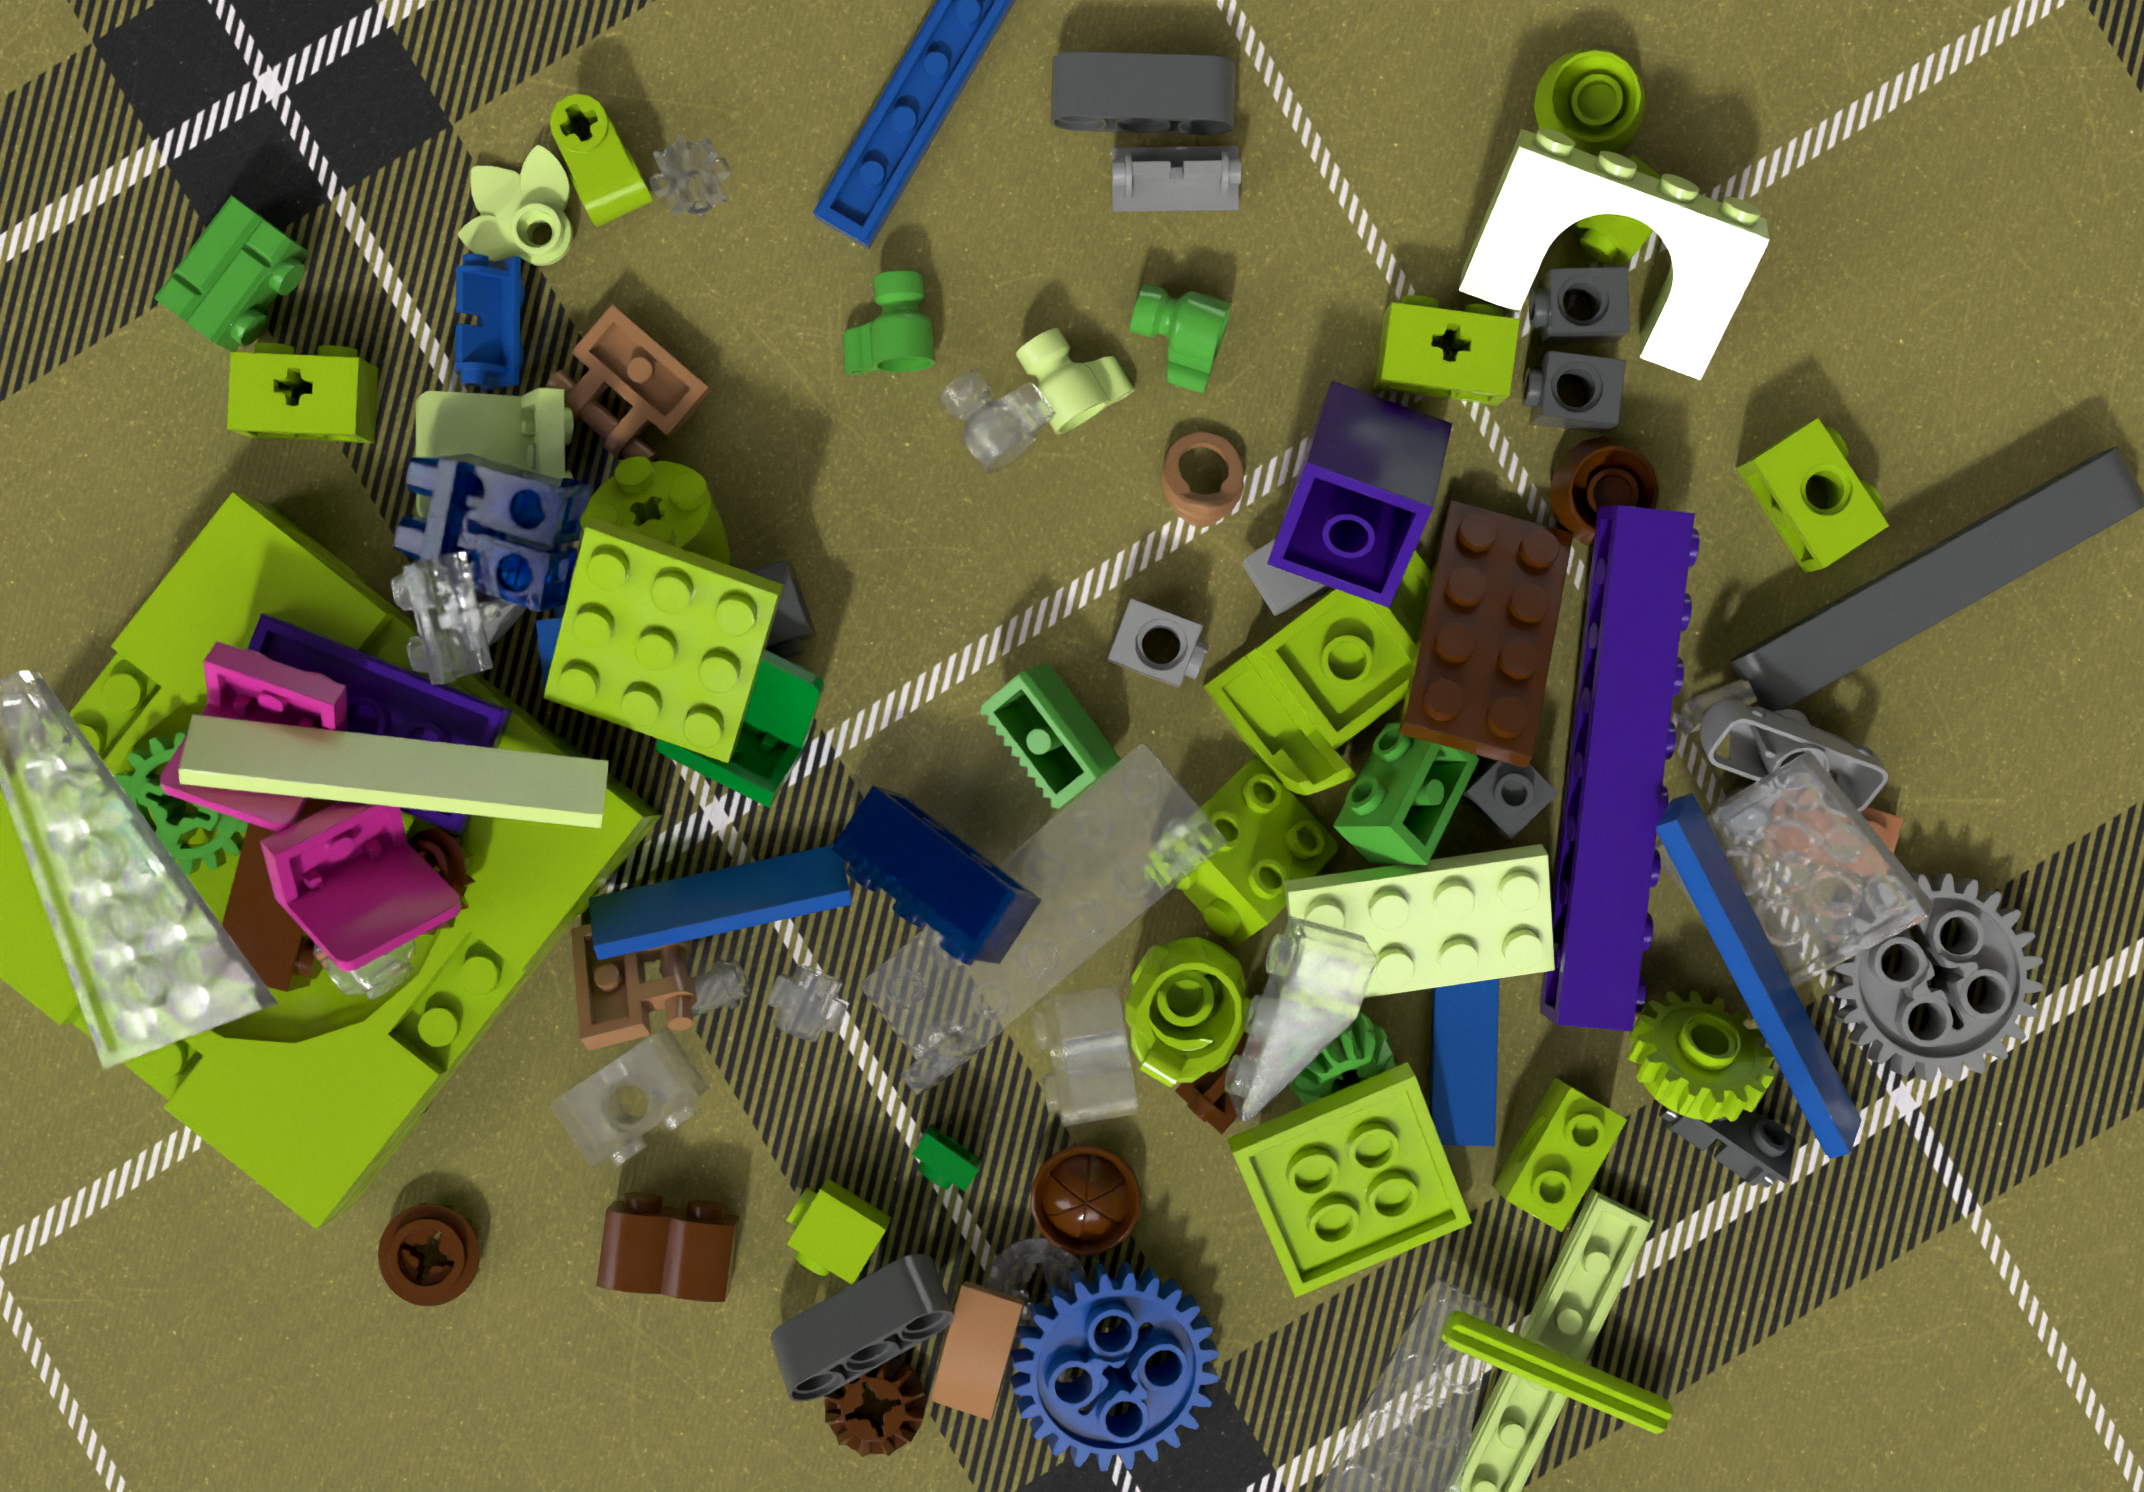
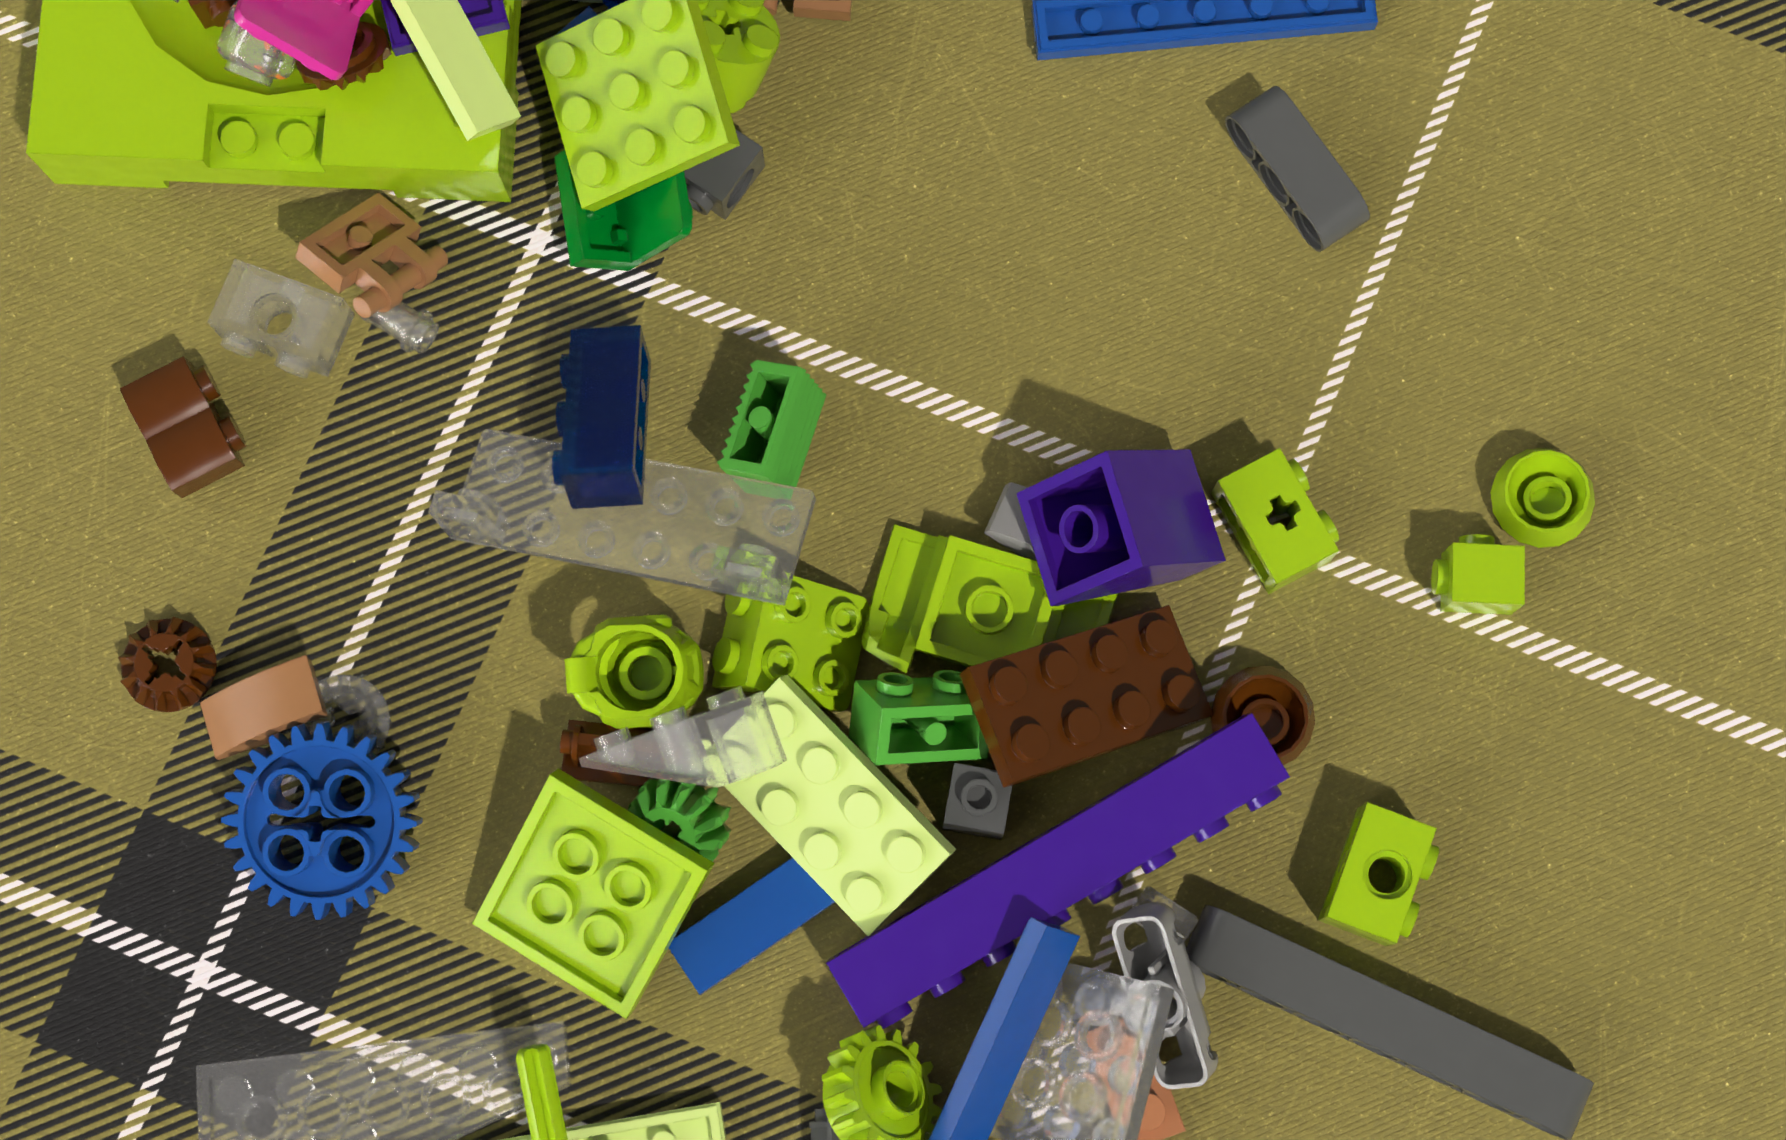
camera: 55 degrees right, 10 degrees down
(403, 1264) = (39, 247): reddish brown gear -> none
(718, 902) = (473, 279): blue tile -> none
(807, 1003) = (443, 397): clear gear -> none
(835, 1231) = (283, 539): lime brick -> none
(861, 1327) = (221, 606): dark grey beam -> none
(897, 338) = (989, 120): bright green piece -> none
(945, 1160) = (395, 581): green plate -> none
(995, 429) = (971, 236): clear piece -> none
(1072, 388) = (1041, 272): yellowish green piece -> none
(1085, 1200) = (437, 708): reddish brown hat -> none
(1087, 1055) = (546, 629): clear brick -> none
(1141, 619) = (894, 438): light grey brick -> none
(1175, 178) = (1253, 236): light grey hinge -> none
(1193, 330) = (1153, 326): bright green piece -> none
(1197, 508) = (1028, 431): medium nougat piece -> none
(1556, 185) = (1498, 640): arch -> none
(1558, 1154) = (727, 1044): lime brick -> none
(1602, 386) = (1312, 662): dark grey brick -> none
(1608, 300) = (1382, 621): dark grey brick -> none

